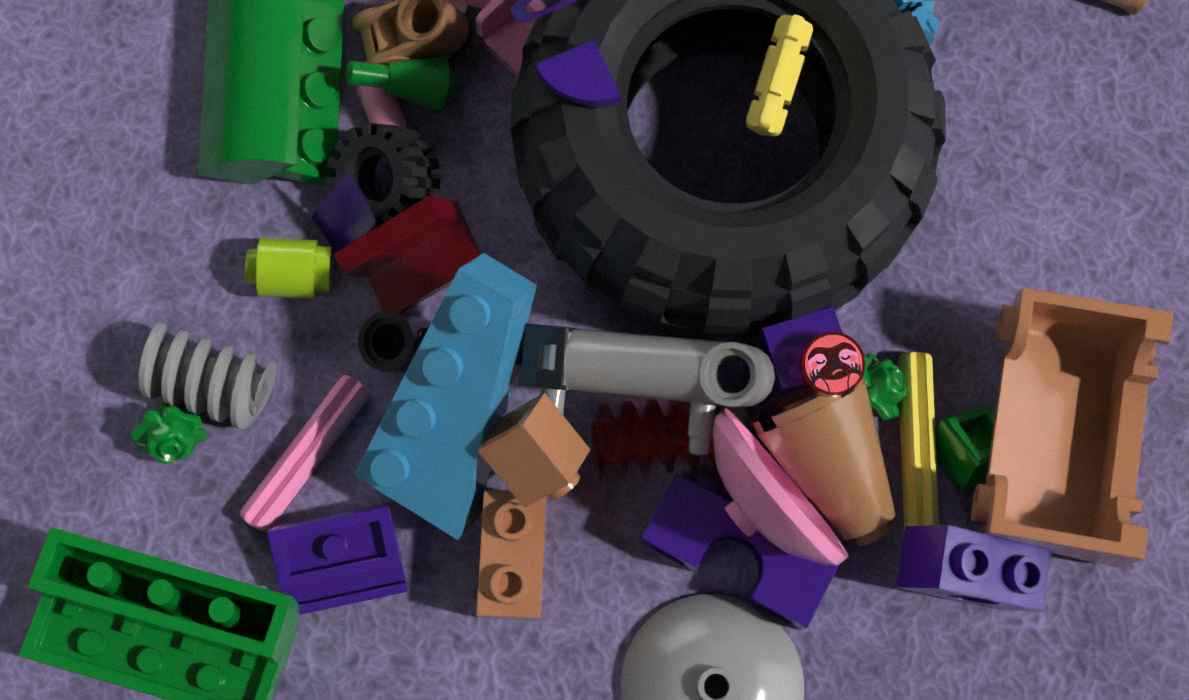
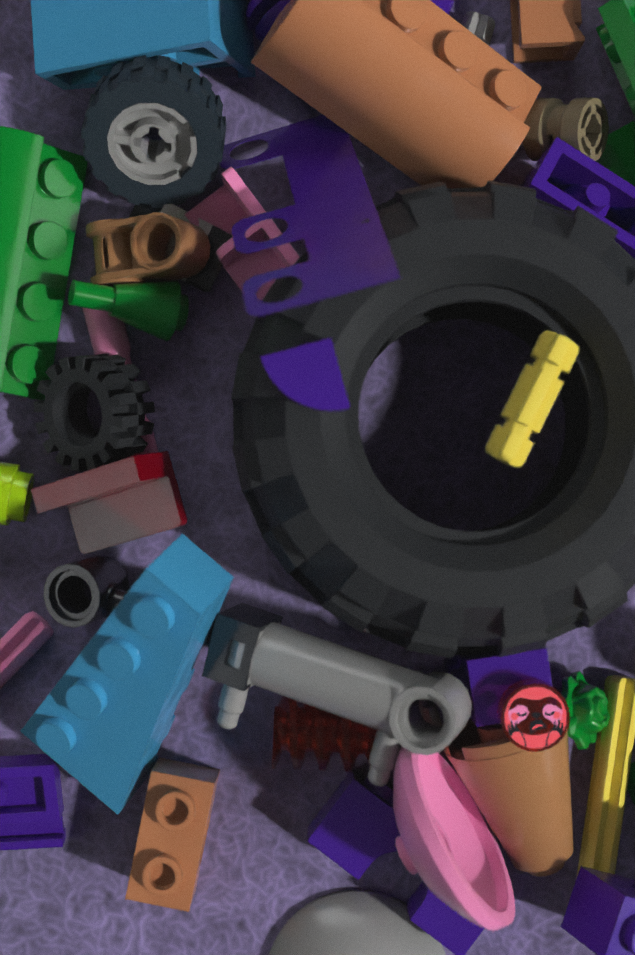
camera: 10 degrees right, 10 degrees up
(344, 214) = (47, 449): dark purple sticker -> none
(535, 451) = (207, 748): nougat brick -> none

